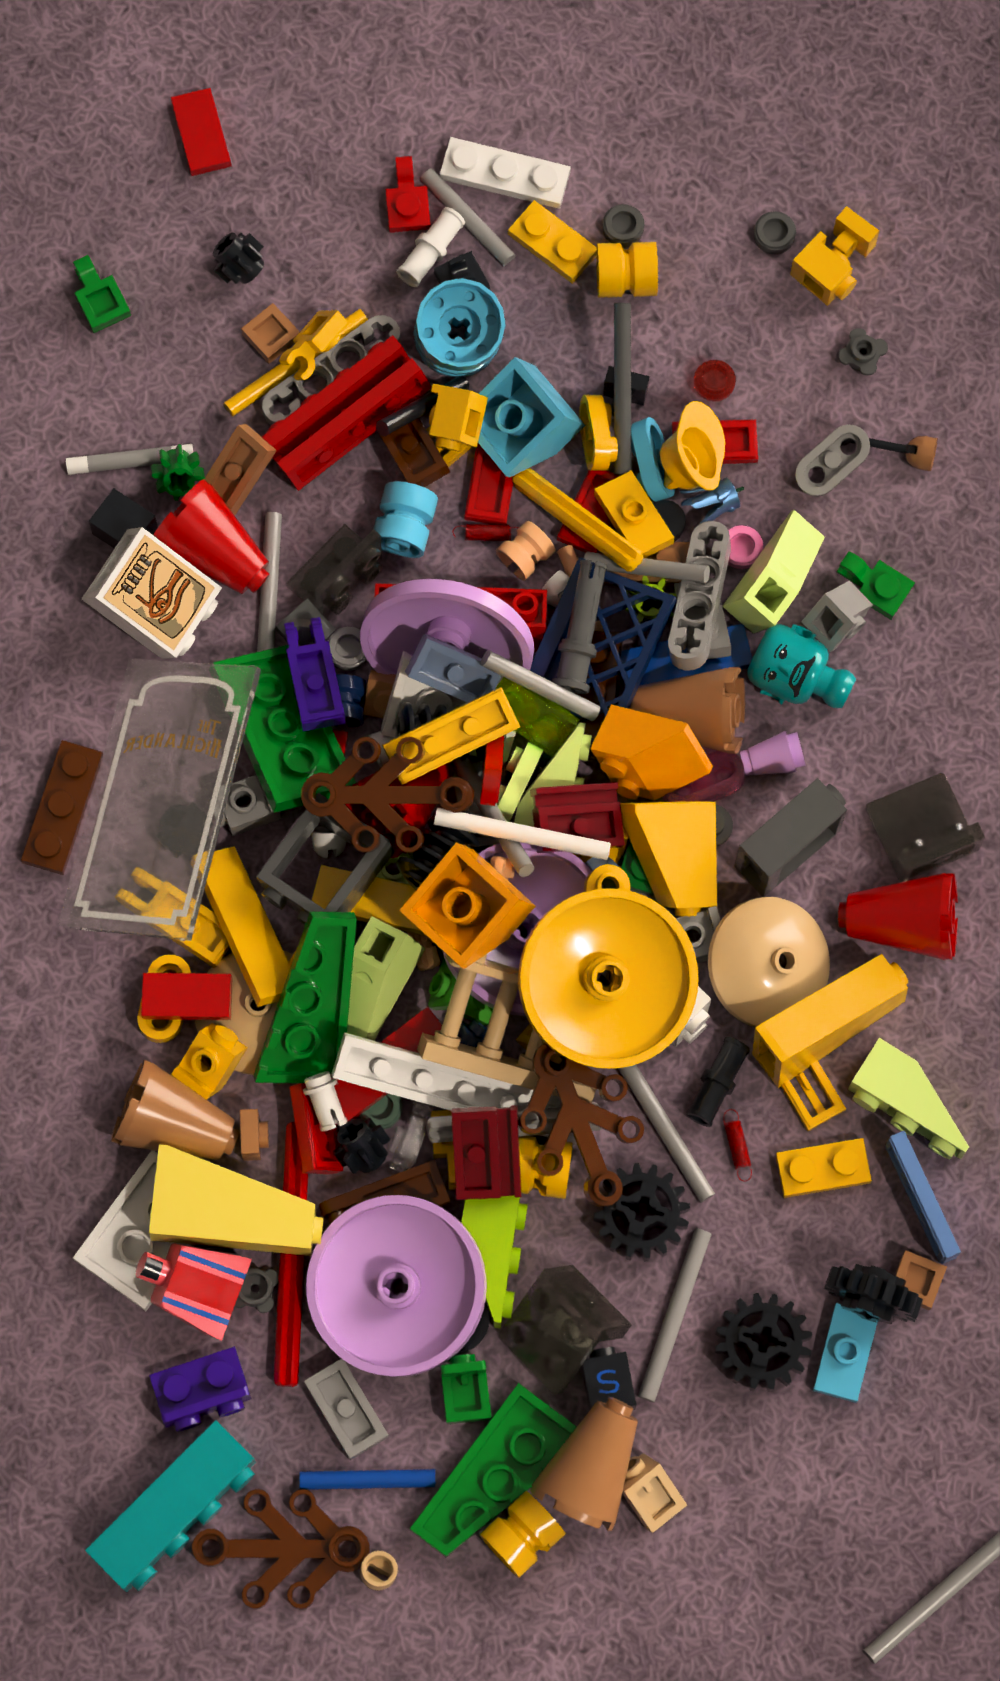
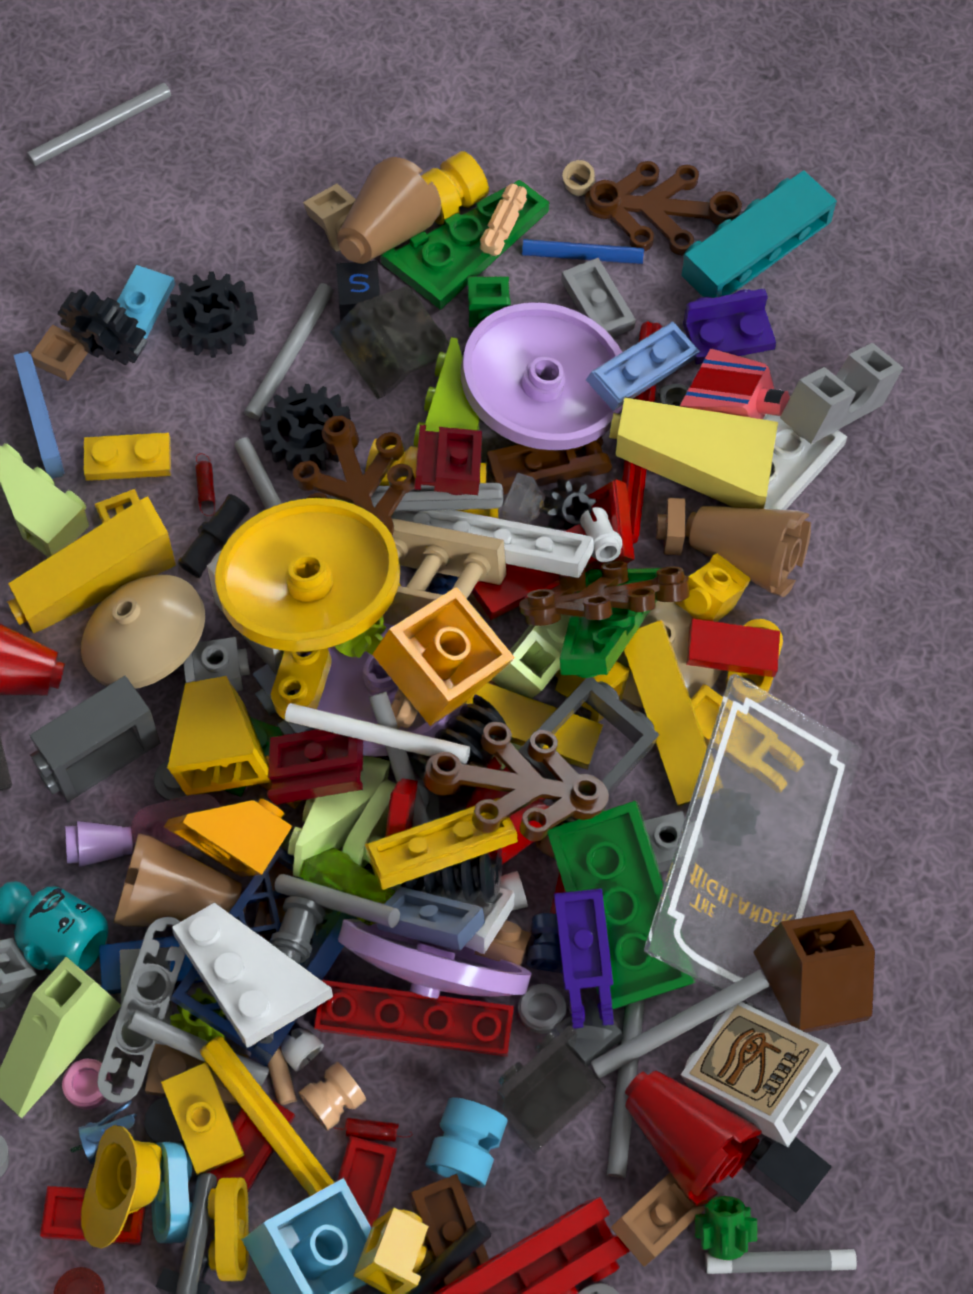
camera: 175 degrees left, 10 degrees down
(62, 807) = (859, 858): reddish brown plate -> none
(80, 1291) = (829, 402): none -> light grey arch
(100, 686) = (820, 970): none -> reddish brown slope
(224, 632) = (679, 1023): none -> light grey bar
(292, 1311) = (642, 365): none -> medium blue tile
(322, 1014) = (595, 601): none -> reddish brown plant
(458, 1488) = (503, 219): none -> light nougat axle
(610, 605) = (248, 975): none -> white wing

